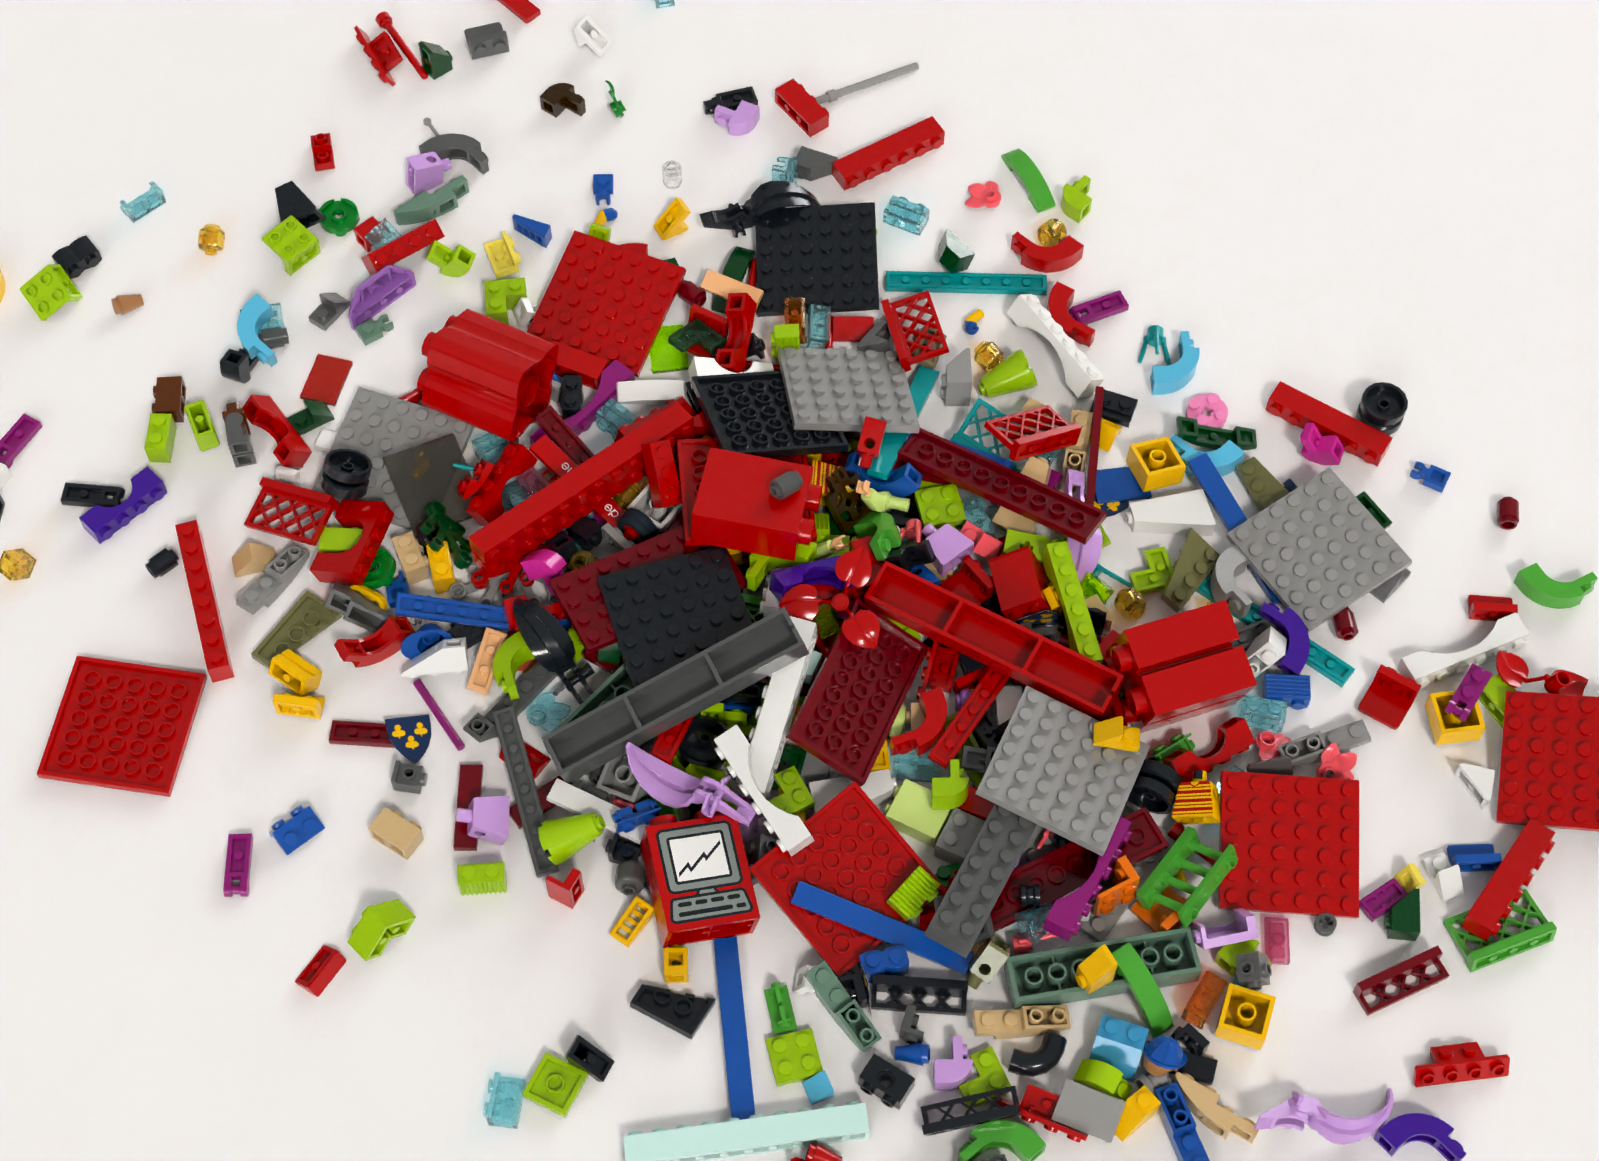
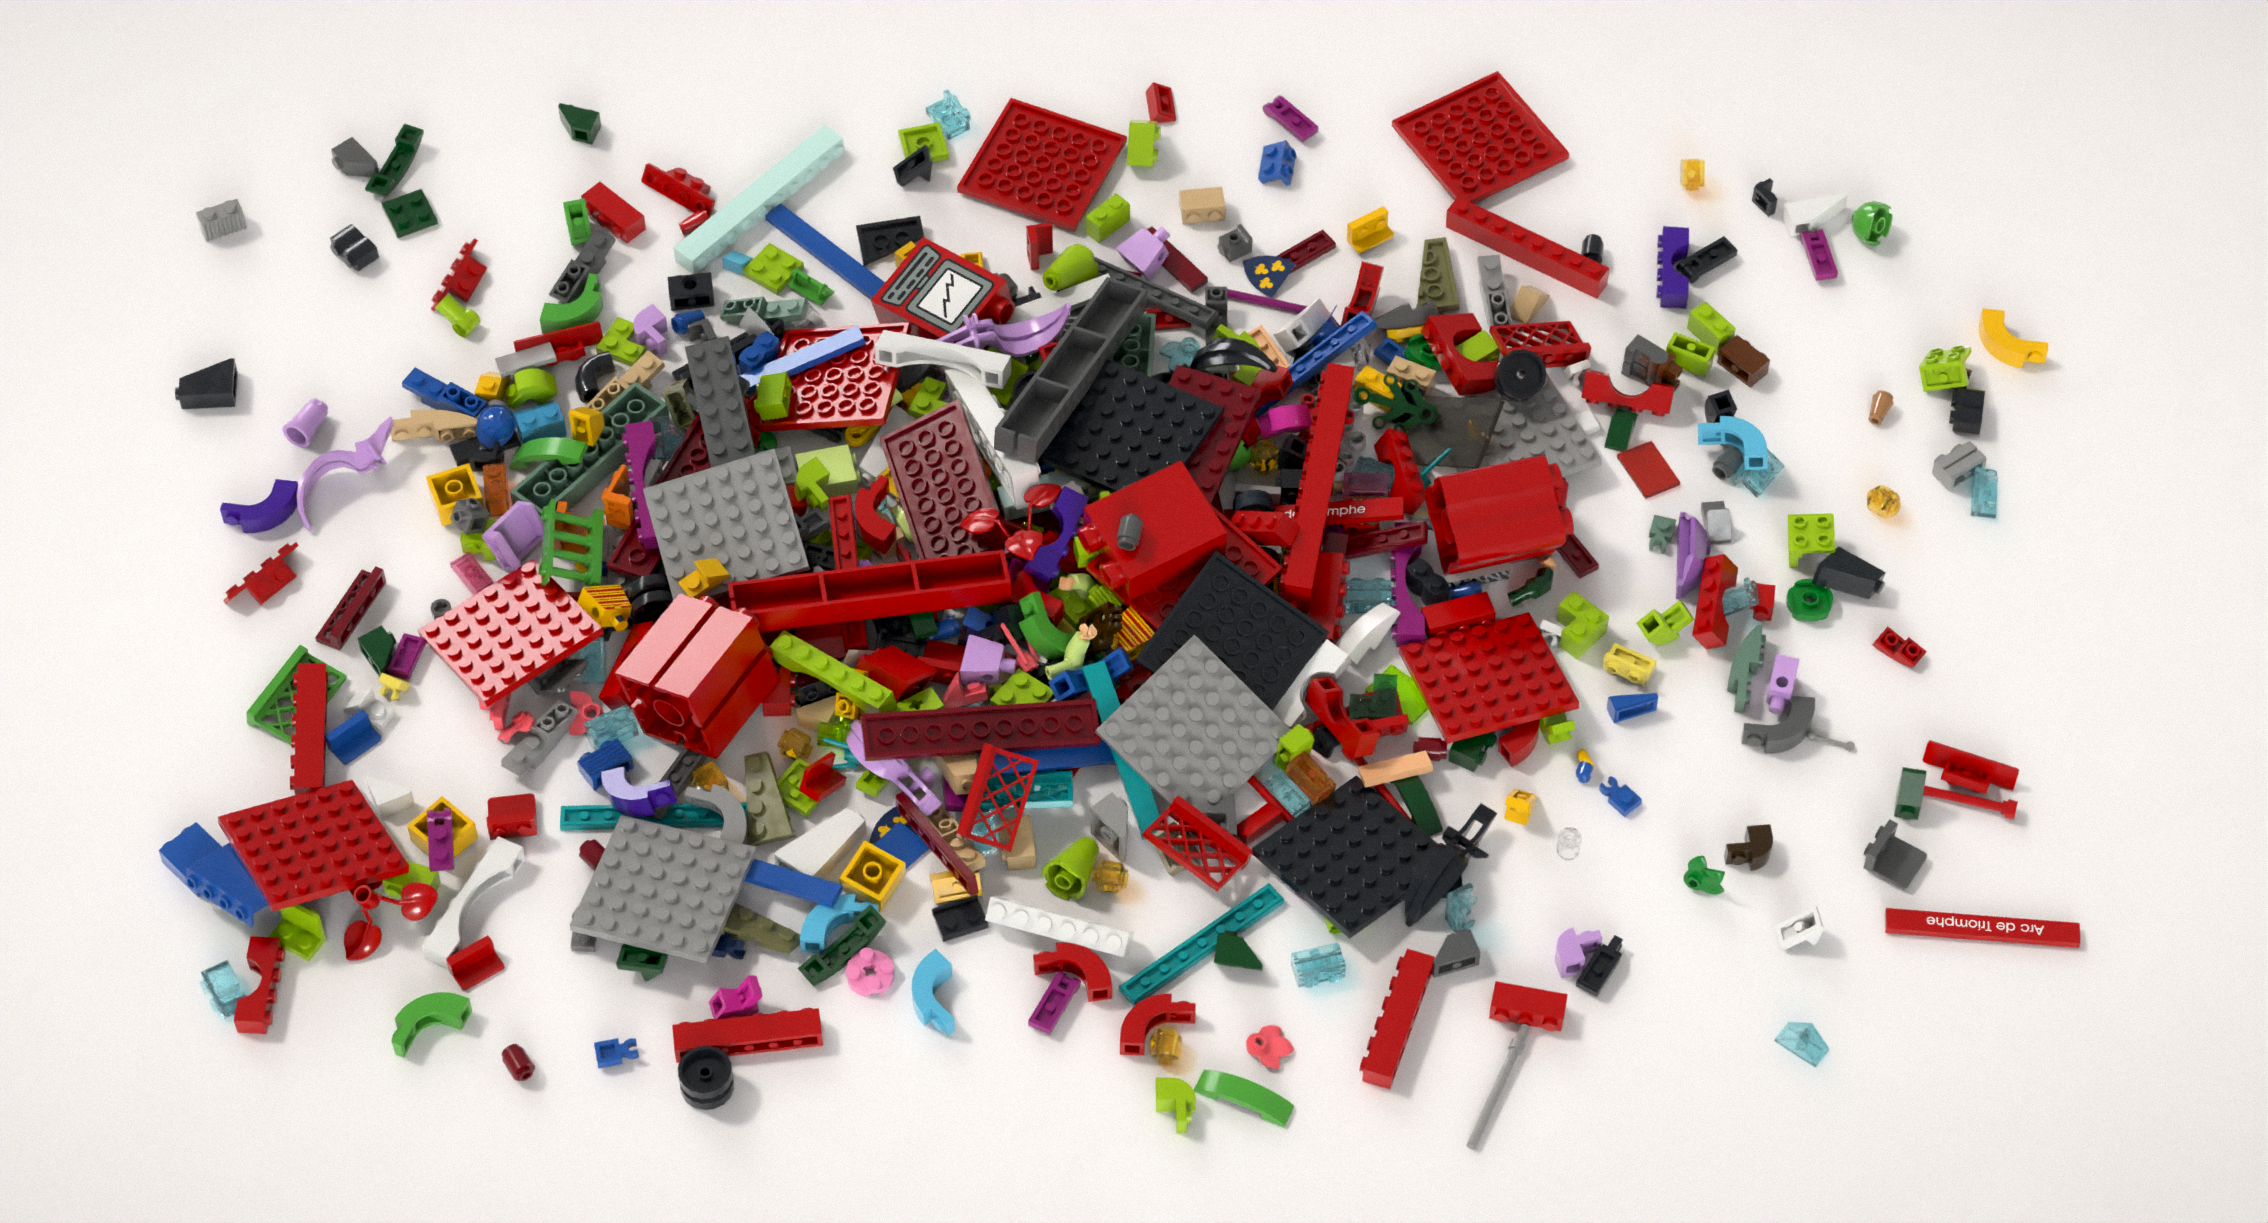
camera: 140 degrees right, 5 degrees down
(133, 228) = (1958, 465): none -> light grey brick
(295, 672) = (1397, 247): yellow brick -> none
(470, 485) = (1421, 451): red slope -> none
(478, 982) = (1042, 164): none -> red plate
(629, 821) = (1032, 301): blue hinge -> none
(872, 432) = (1117, 662): red torso -> none
(968, 1119) = (608, 300): black fence -> none
(971, 322) = (1159, 906): arm -> none
(1029, 895) = (683, 448): black wheel -> none
(1134, 558) = (821, 779): none -> red panel
(1155, 338) = (977, 1009): teal plant -> none
(1266, 650) = (644, 769): white slope -> none

